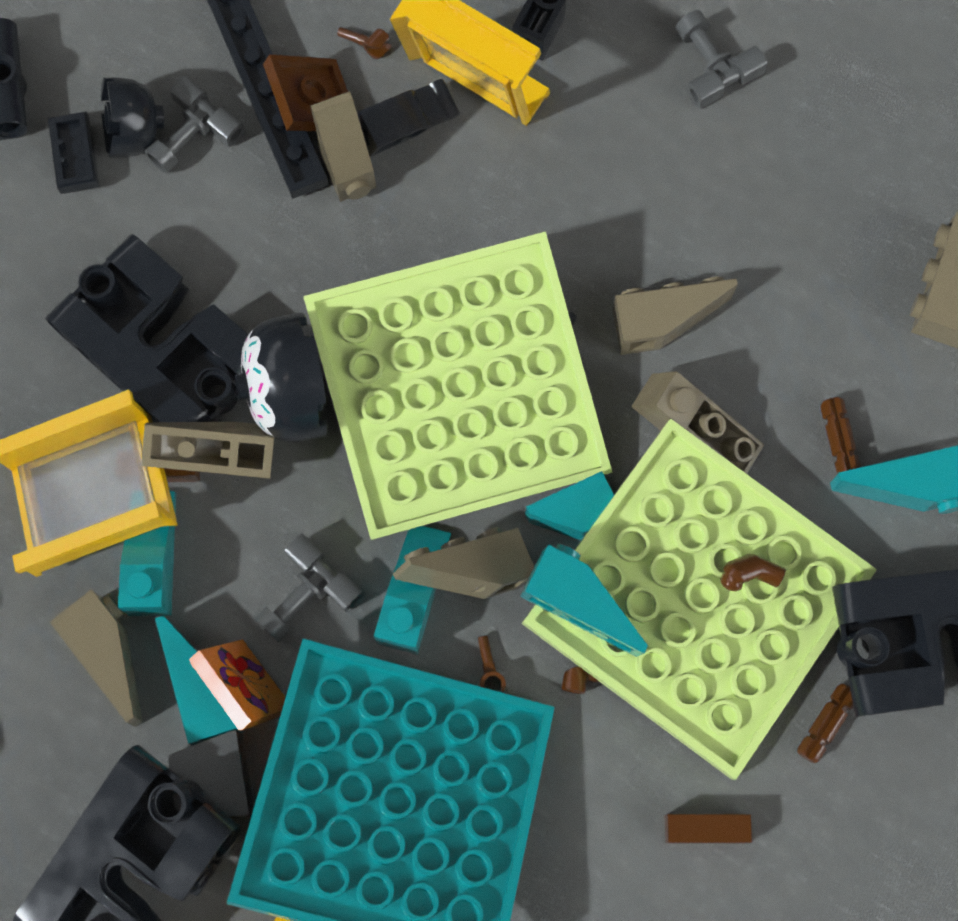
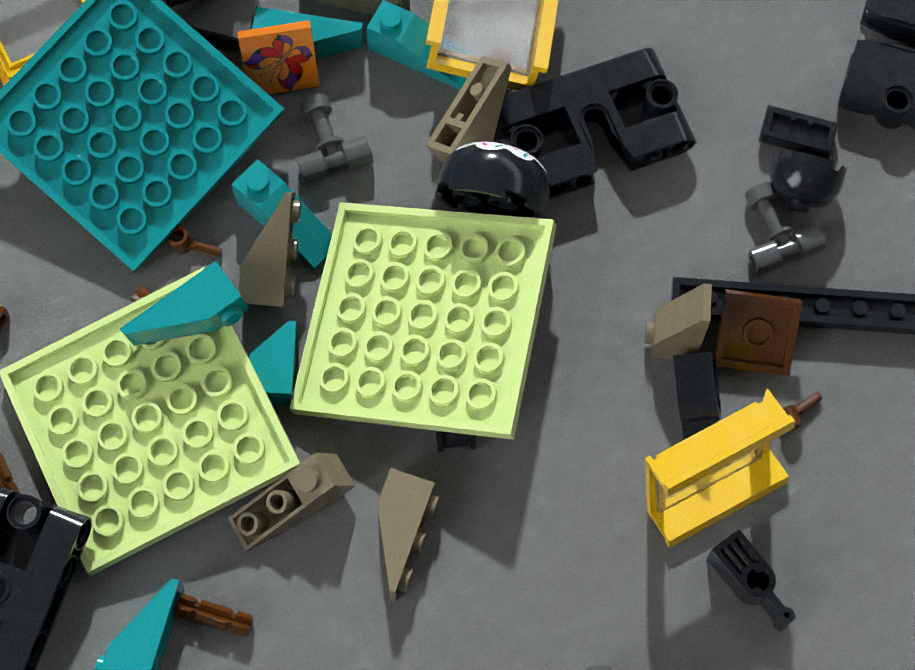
camera: 115 degrees right, 5 degrees down
(748, 568) = (143, 459): reddish brown arm -> none

